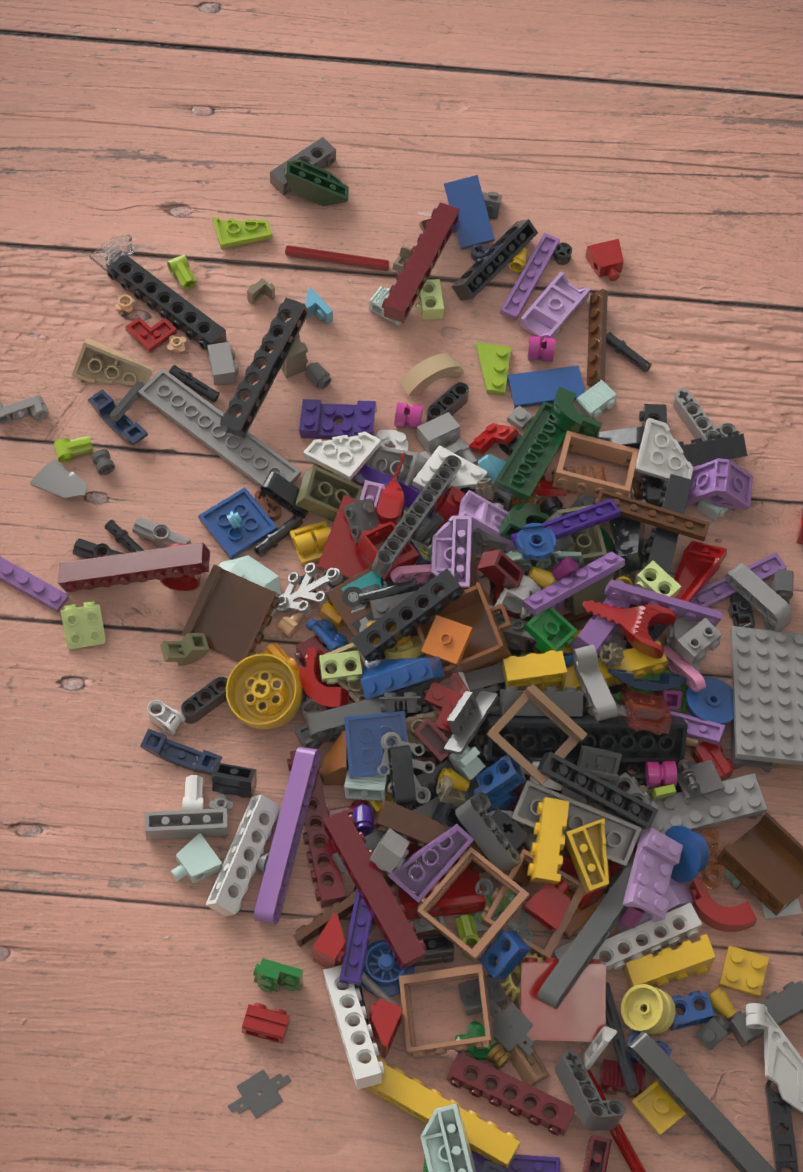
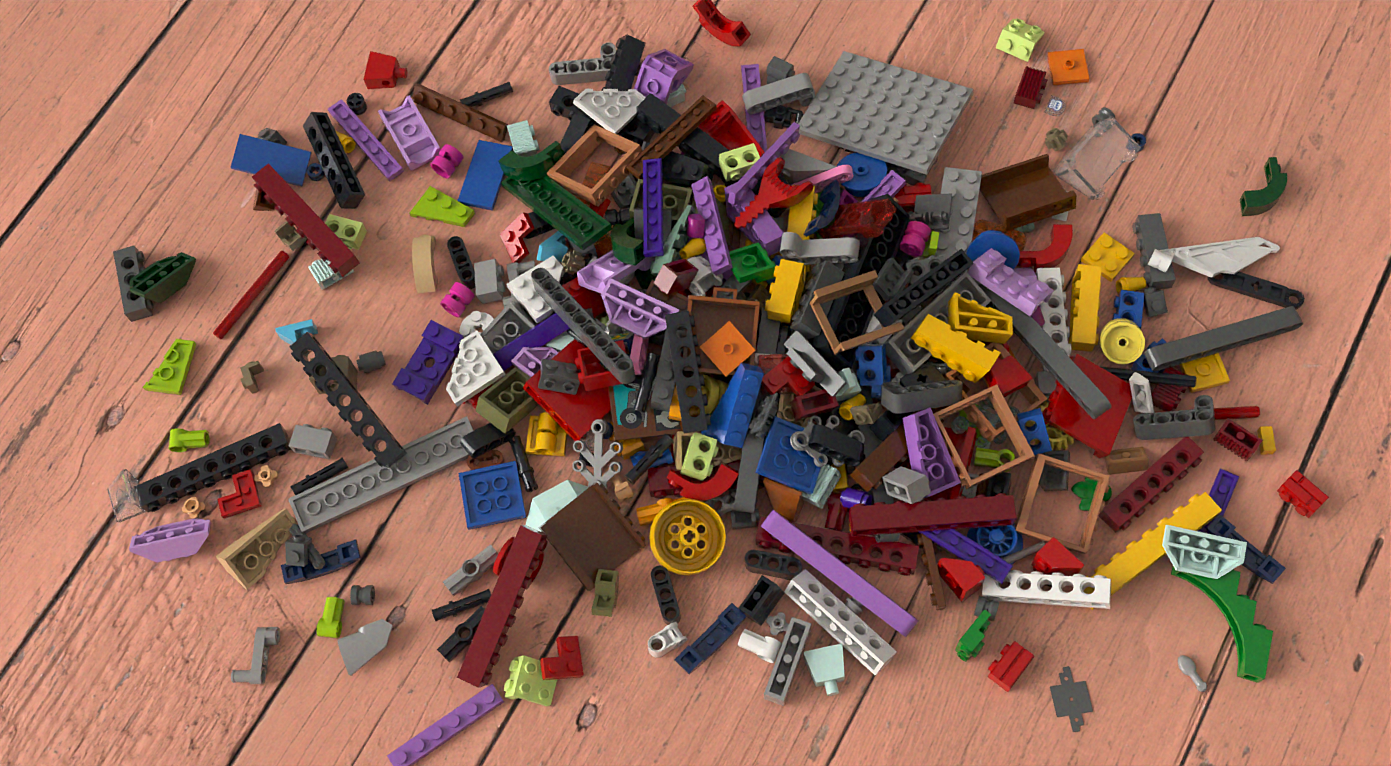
camera: 55 degrees left, 5 degrees up
(87, 298) = (171, 540): none -> lavender wedge
(109, 646) = (567, 664): none -> red plate
(117, 392) = (297, 550): none -> dark grey bracket
(234, 519) = (491, 494): medium azure plate -> none
(273, 770) = (765, 558): none -> black beam
(313, 981) = (989, 606): none -> dark grey wheel
(321, 628) = (652, 455): none -> black pin
(392, 497) = (549, 341): red animal -> none
(498, 1057) = (1117, 479): pearl gold wheel -> none
(519, 1023) = (1102, 451): dark grey piece -> none
(520, 418) = (506, 209): light grey plate -> none
(535, 551) = (664, 244): blue plate -> none
(611, 655) = (794, 220): dark tan gear -> none
(698, 642) = (811, 153): light grey brick -> none

